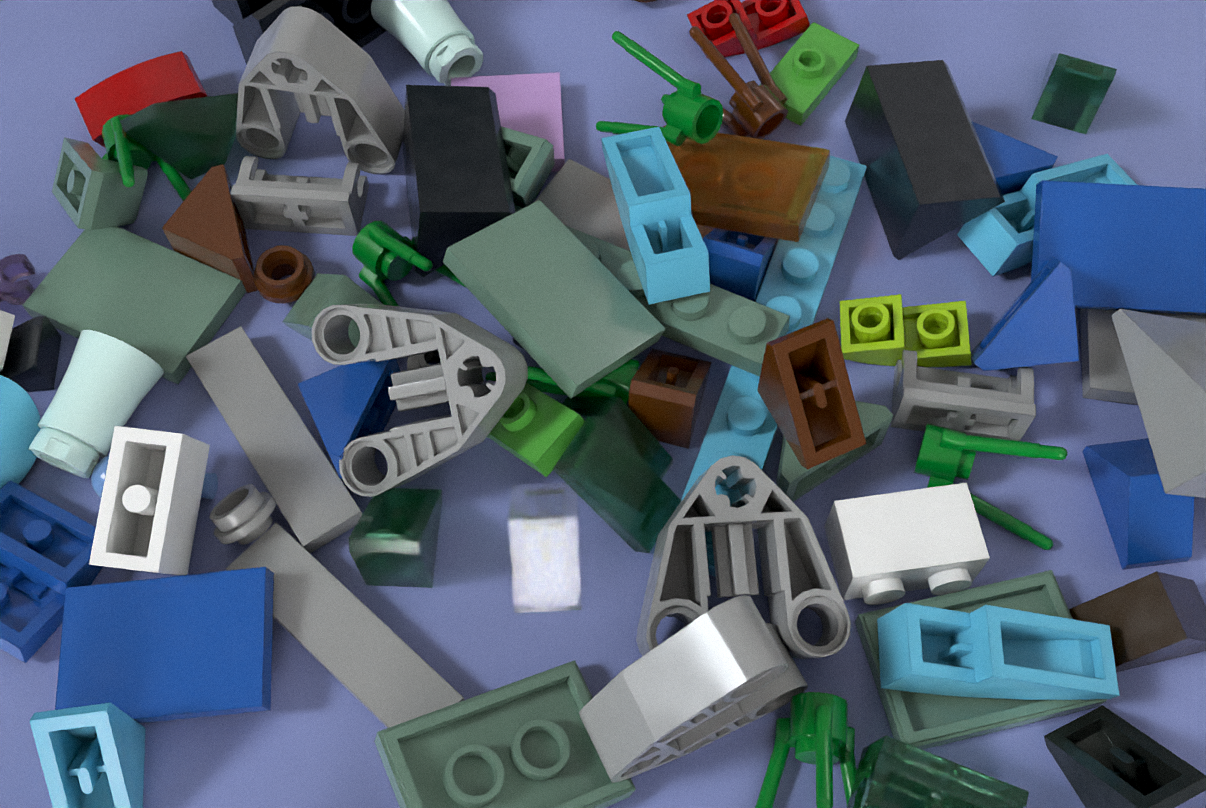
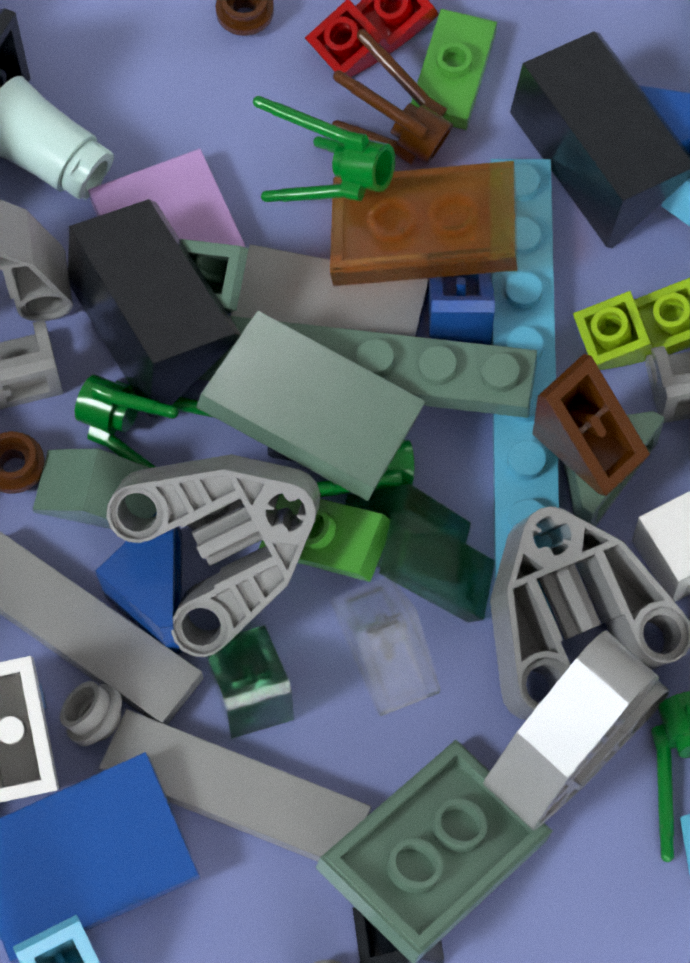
camera: 20 degrees left, 5 degrees up
(656, 215) = (374, 287): medium azure slope -> none
(669, 395) = (448, 460): reddish brown slope -> none

